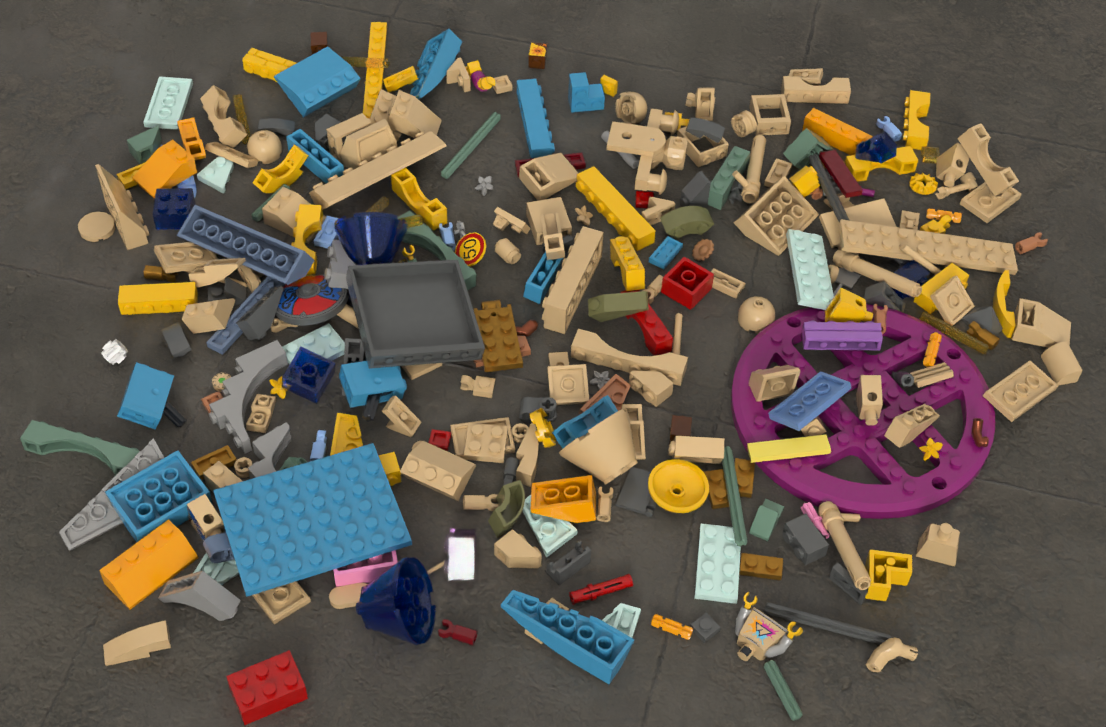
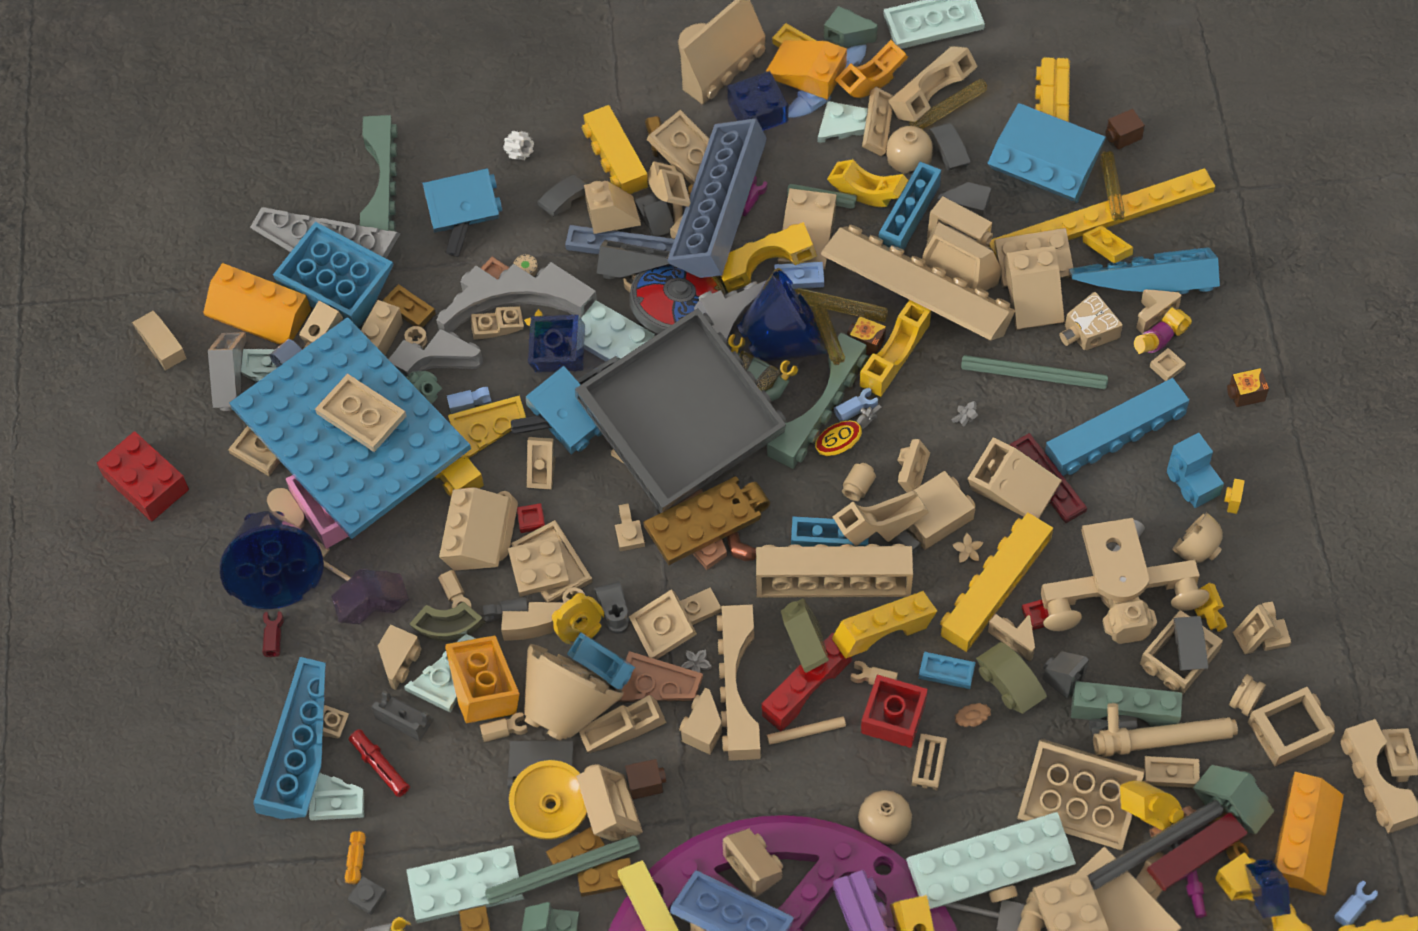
camera: 75 degrees right, 10 degrees up
(312, 497) = (360, 412): none -> tan plate
(399, 207) = (869, 333): none -> brick
(452, 106) = (1091, 324): none -> tan torso

